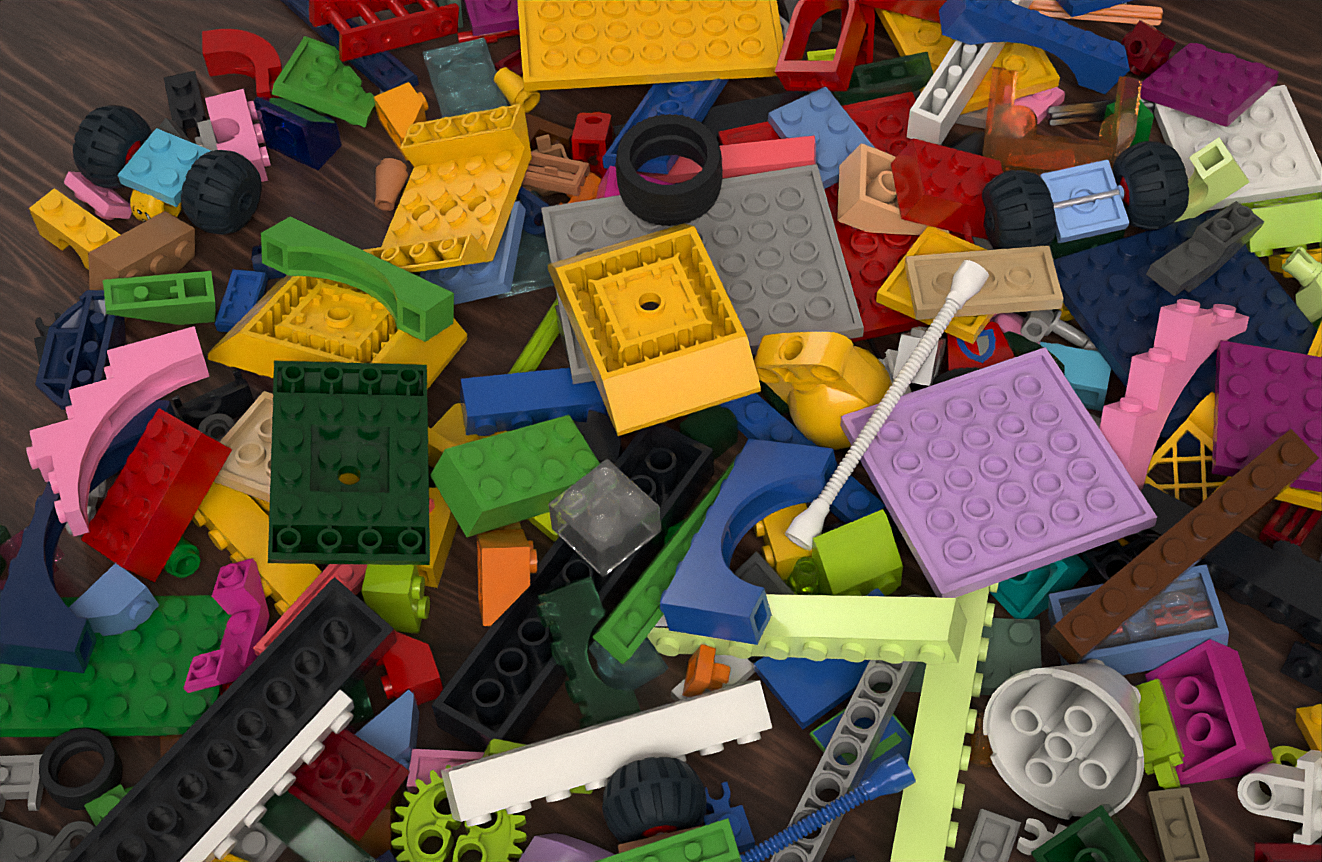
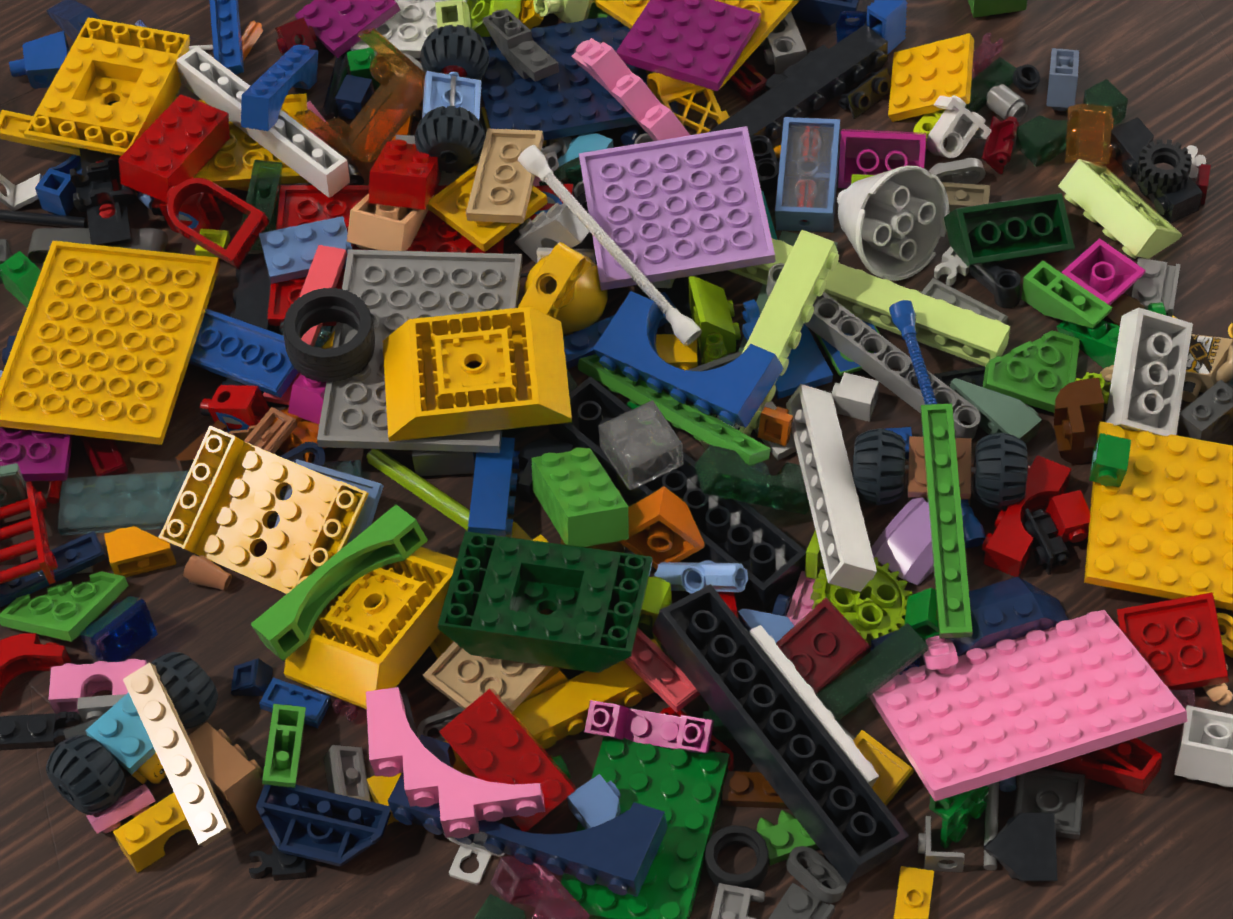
camera: 75 degrees left, 0 degrees up
(126, 203) = (177, 755): none -> plate
(432, 739) = (782, 605): none -> dark blue tile
(449, 638) = (695, 576): none -> light blue piece
(513, 89) = (143, 460): yellow cone -> none
(783, 763) = (855, 396): none -> white brick
(1080, 121) = (353, 96): none -> dark blue brick
(1181, 548) = (780, 117): reddish brown brick -> none
(1211, 806) = (961, 171): none -> light grey plate

